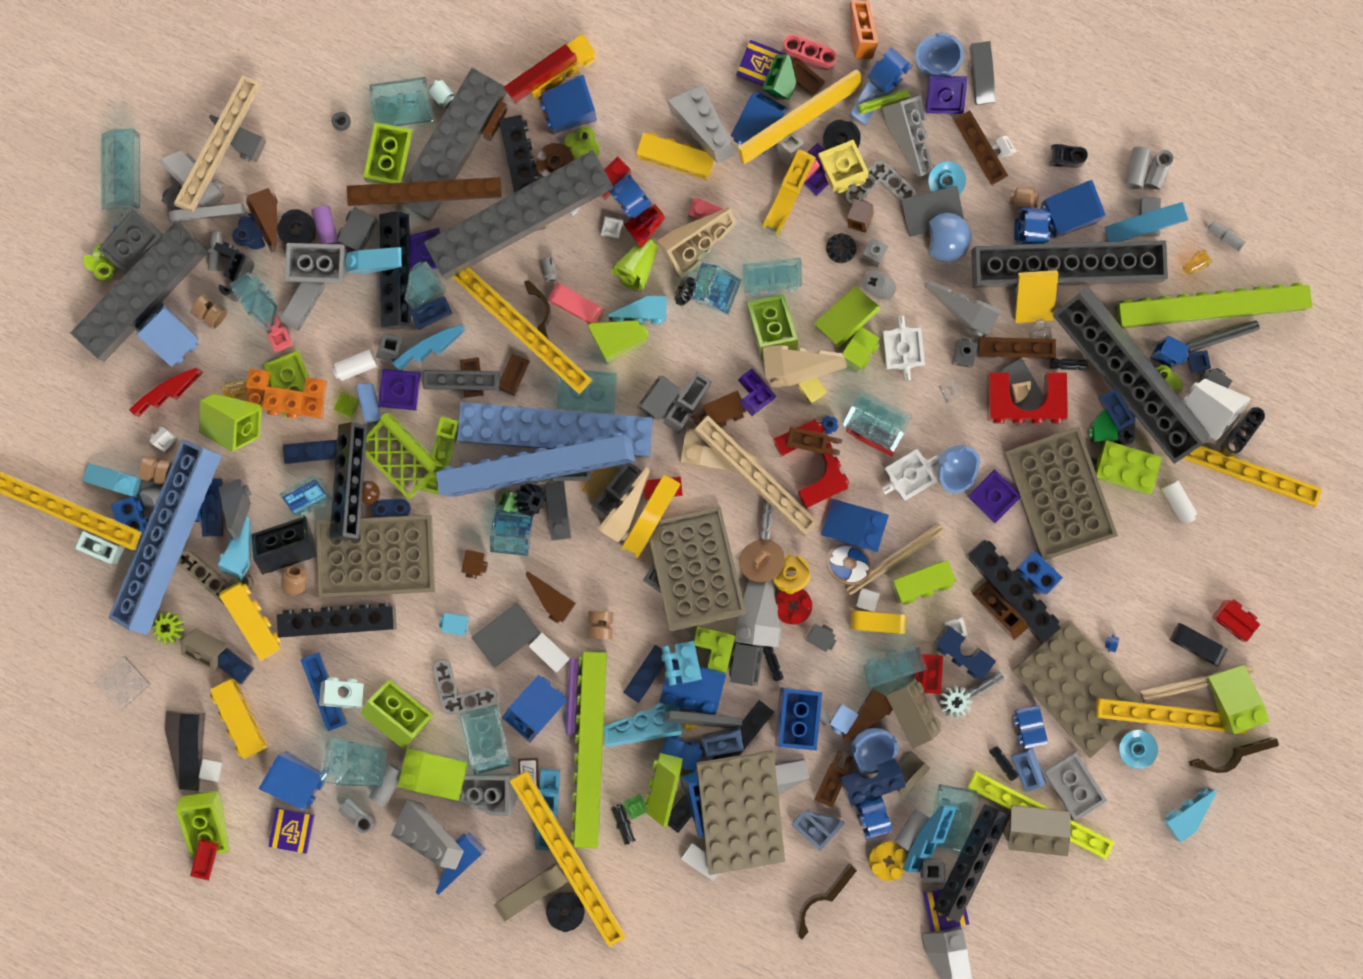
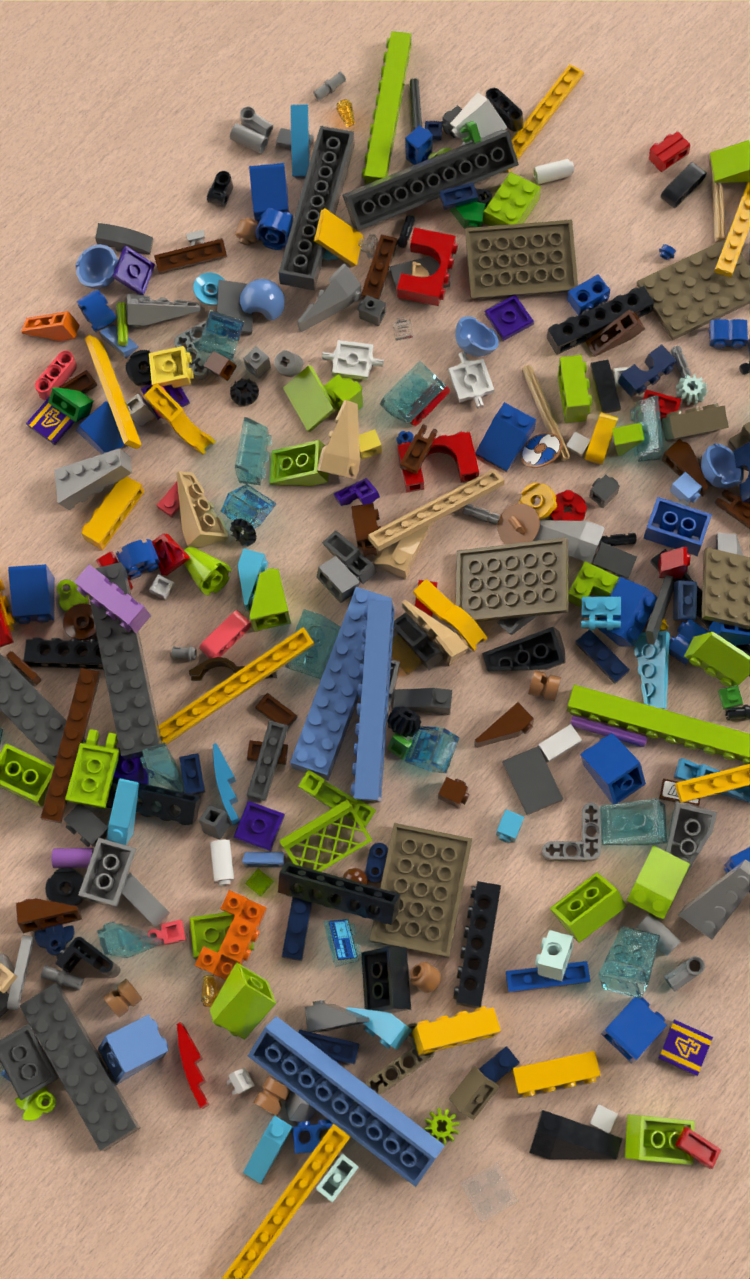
camera: 70 degrees left, 15 degrees down
(403, 221) = (93, 771): none -> lime tile
(566, 187) = (112, 598): none -> medium lavender wedge
(630, 609) = (533, 652): none -> black wedge
(753, 723) = (674, 563): none -> red slope
(880, 648) = (627, 437): none -> lime slope
(893, 207) = (221, 334): none -> clear light blue slope
(939, 613) = (605, 386): none -> black tile
(1194, 405) = (473, 132): none -> bright green tile

